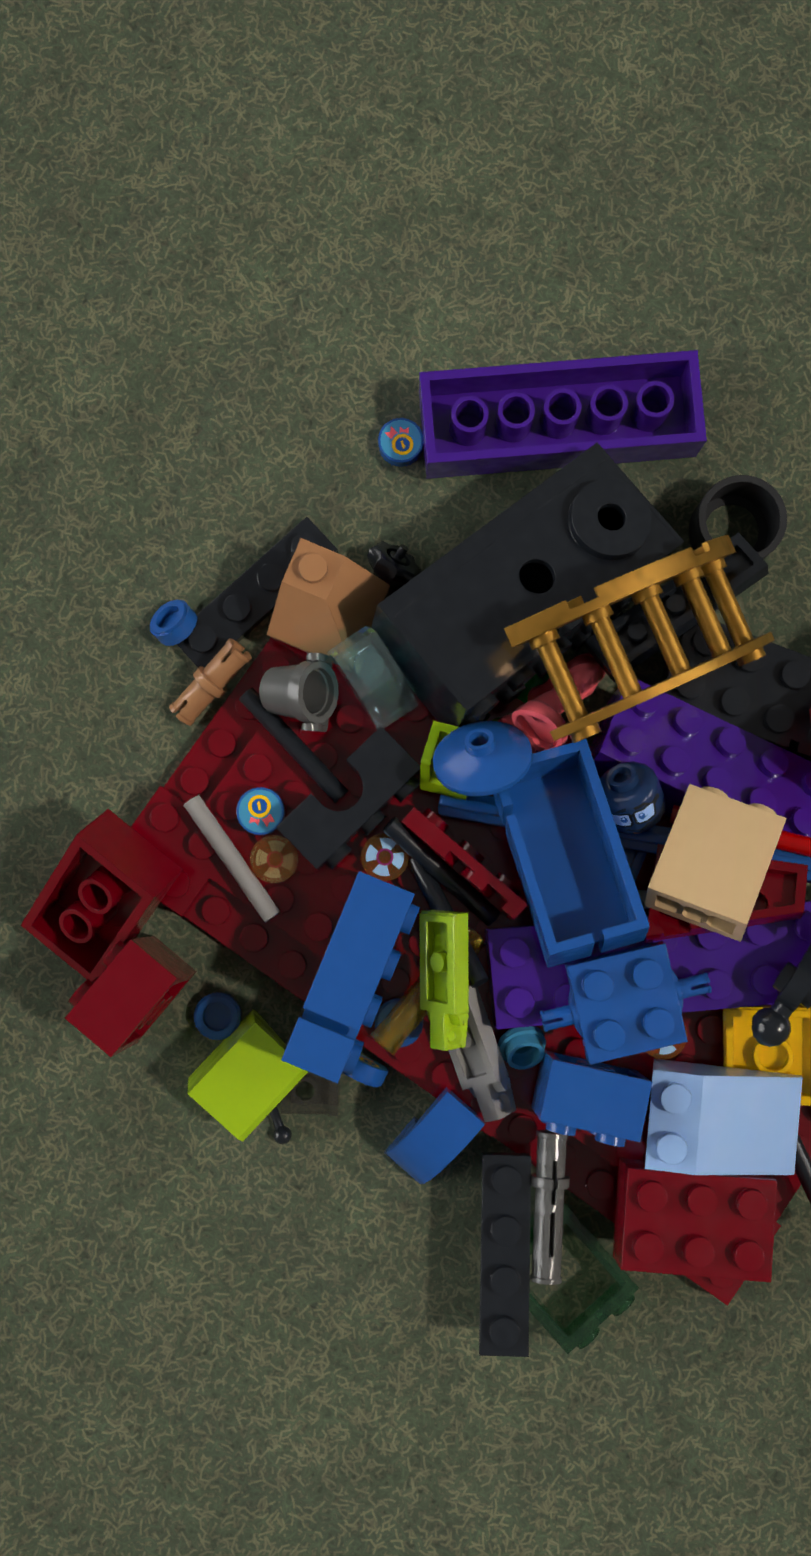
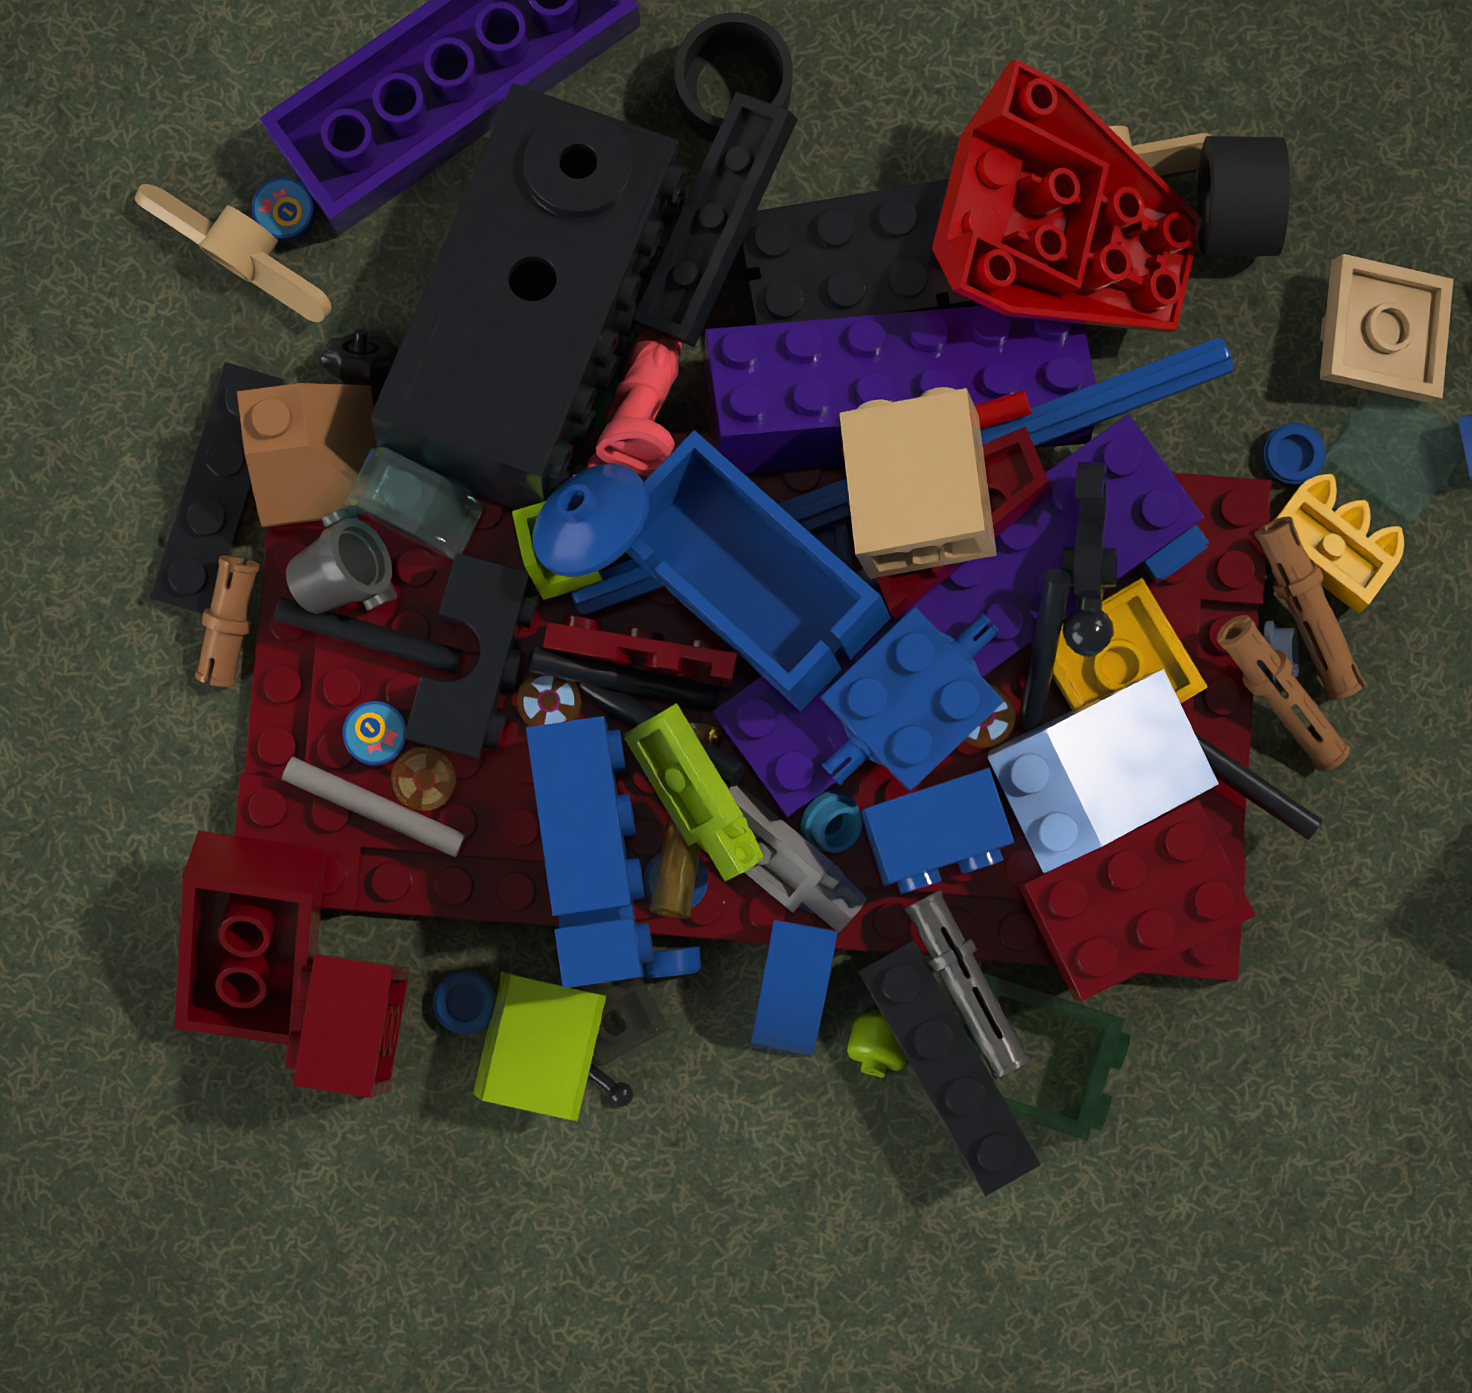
camera: 30 degrees left, 0 degrees up
(173, 622) = (141, 577): blue tile -> none
(359, 449) = (240, 247): none -> tan piece
(464, 1200) = (875, 1045): none -> lime piece
(633, 797) = (787, 465): dark blue head -> none
(644, 588) = (658, 223): pearl gold fence -> none
(732, 1018) = (1044, 649): none -> black bar

